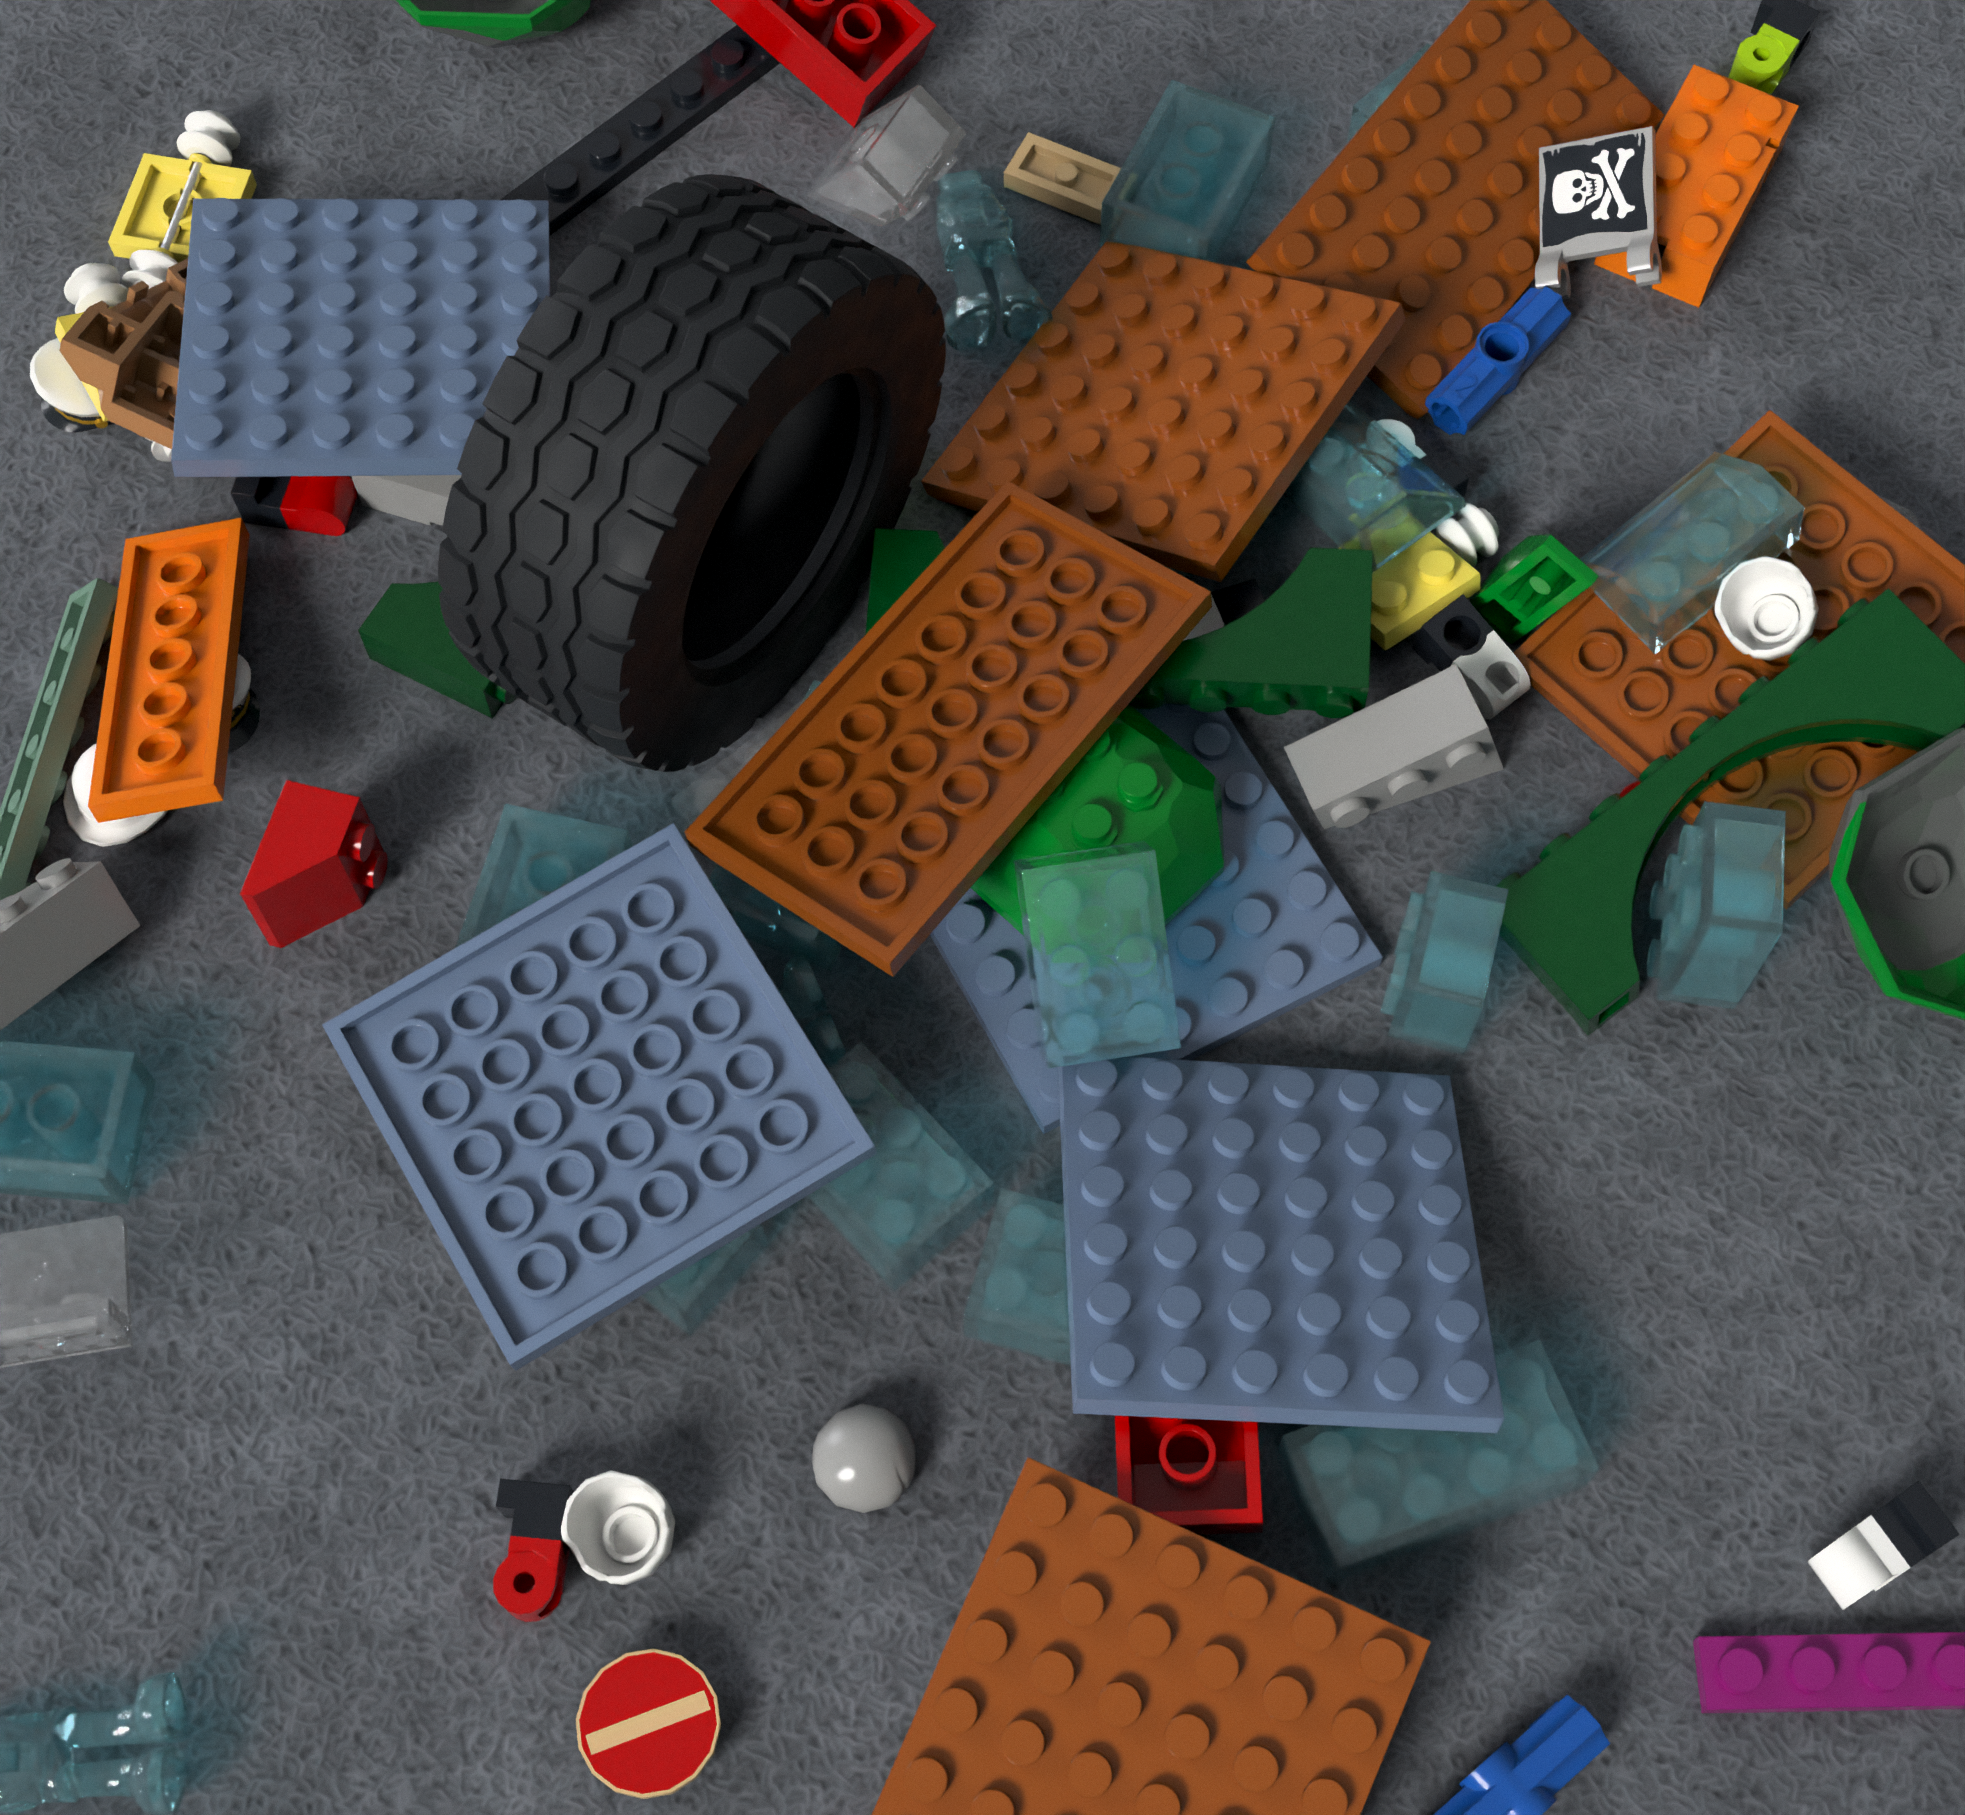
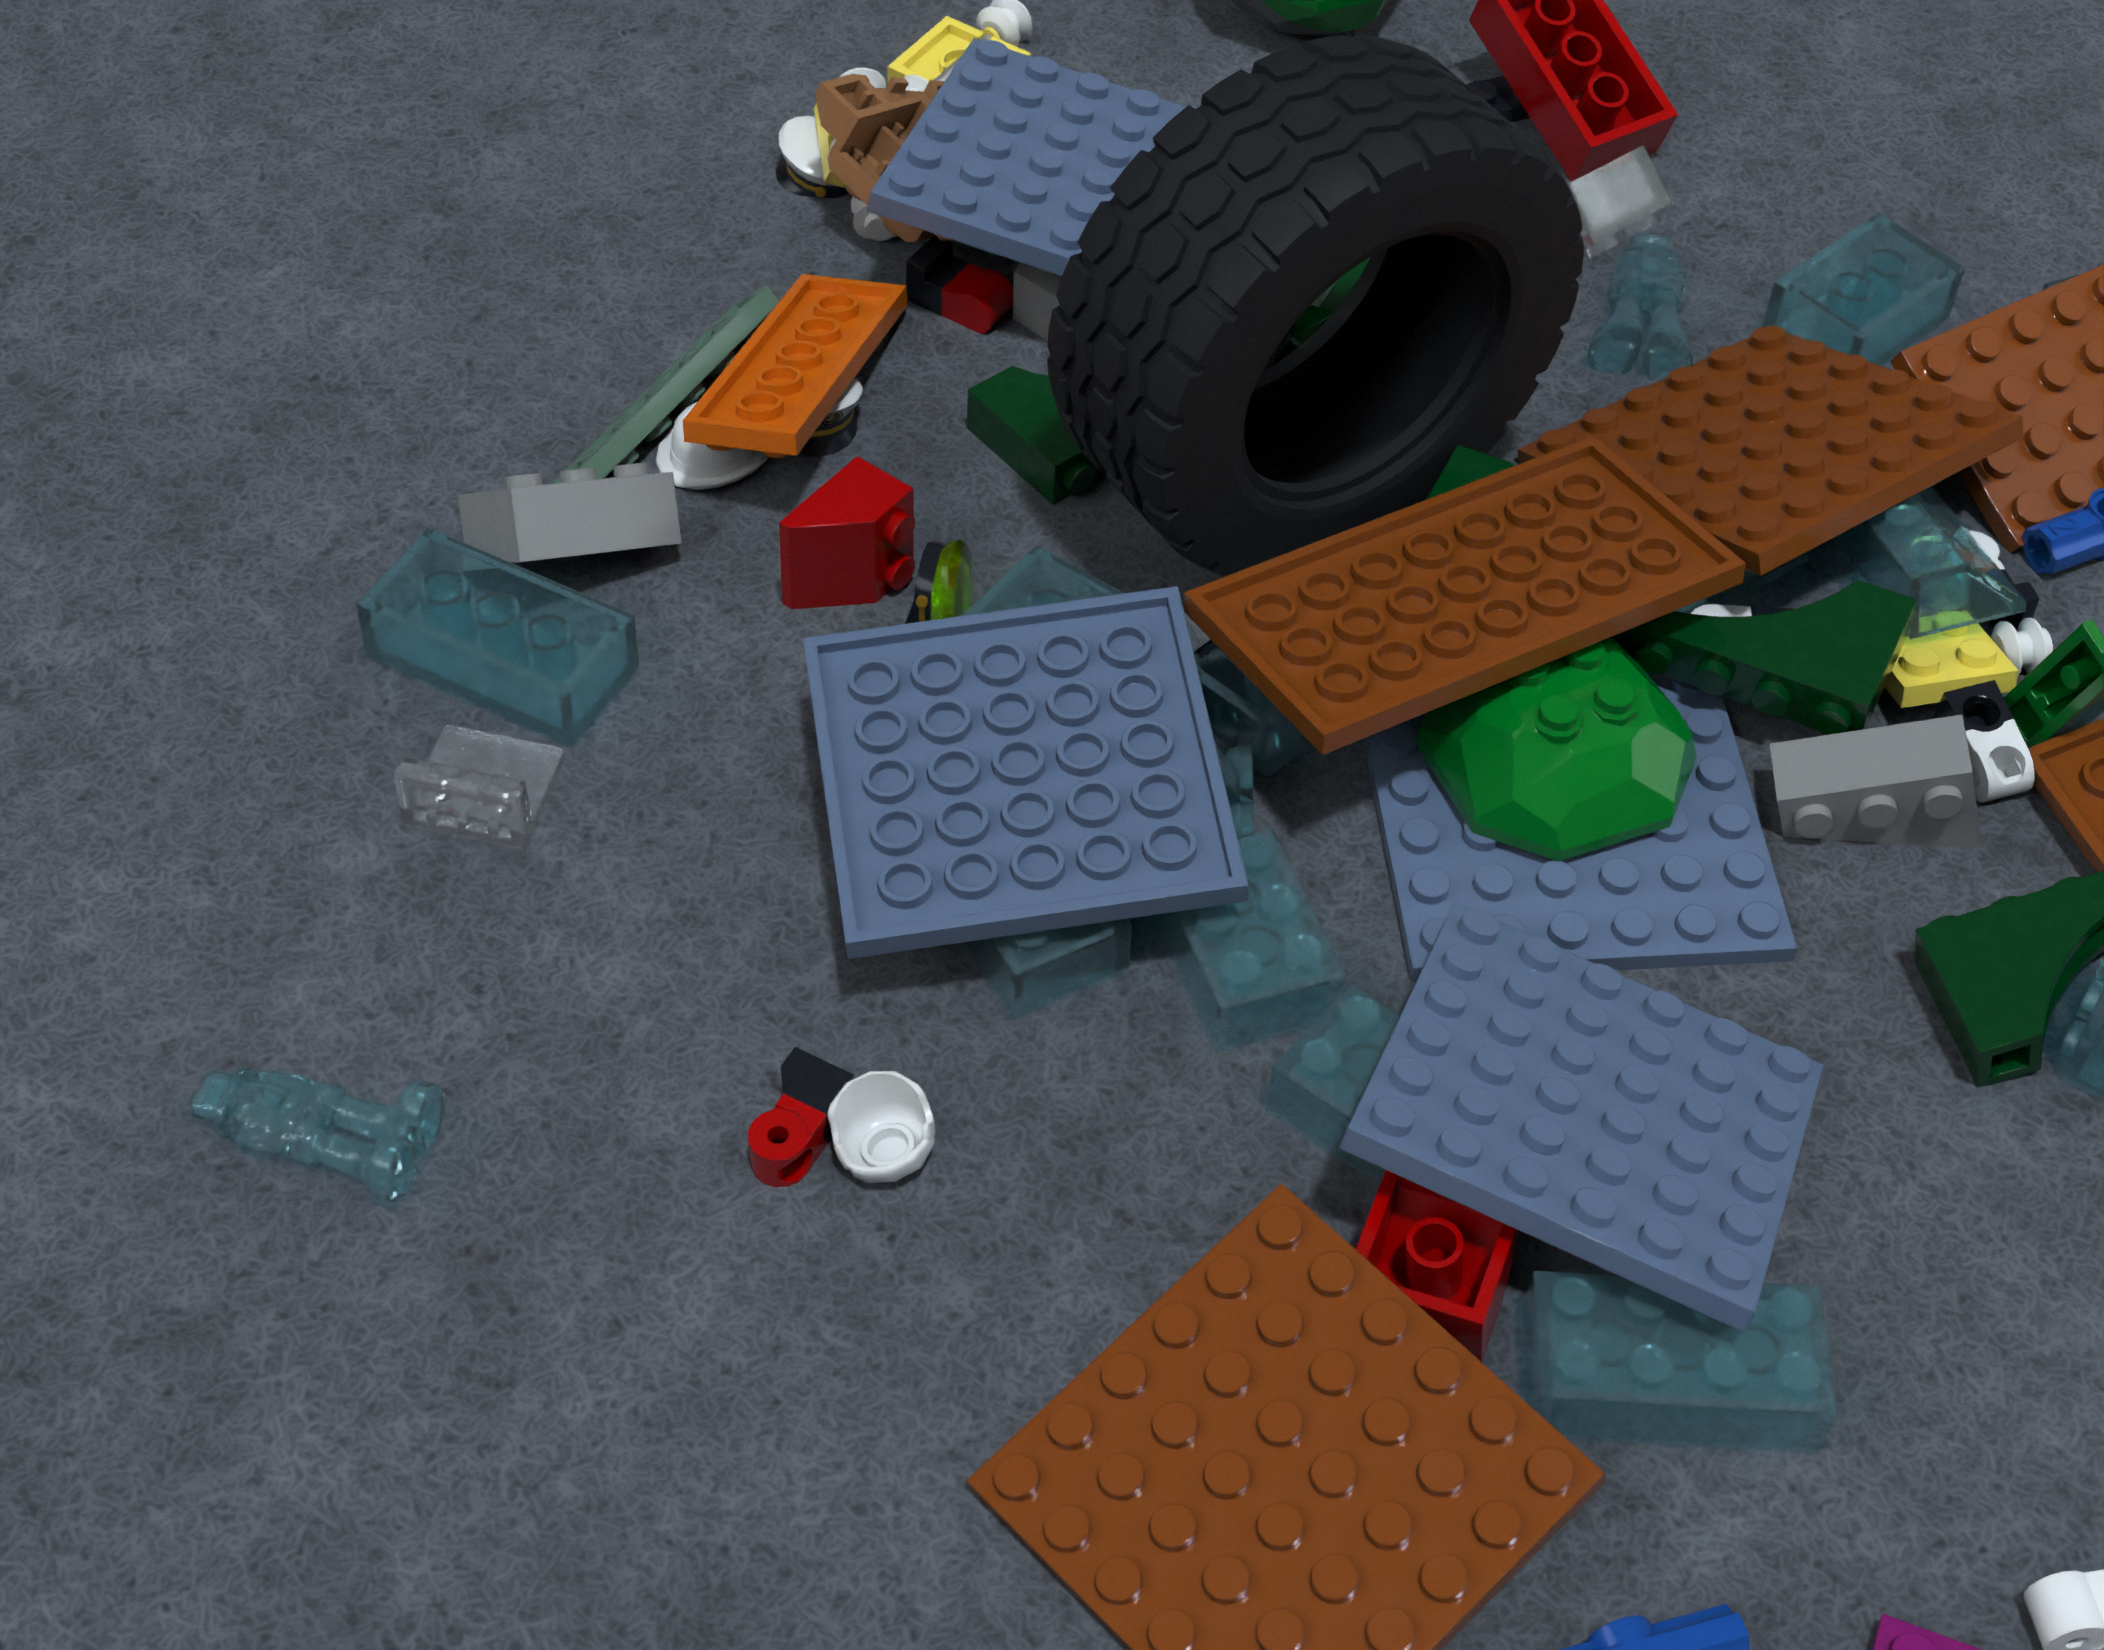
camera: 20 degrees right, 15 degrees down
(432, 884) = (943, 582): none -> clear neon green piece
(648, 1723) = (837, 1291): red piece -> none
(864, 1458) = (1129, 1165): light grey hair -> none
(1060, 177) = (1740, 265): tan plate -> none
(1097, 954) = (1521, 818): clear light blue brick -> none
(1443, 962) = (1854, 958): clear light blue brick -> none

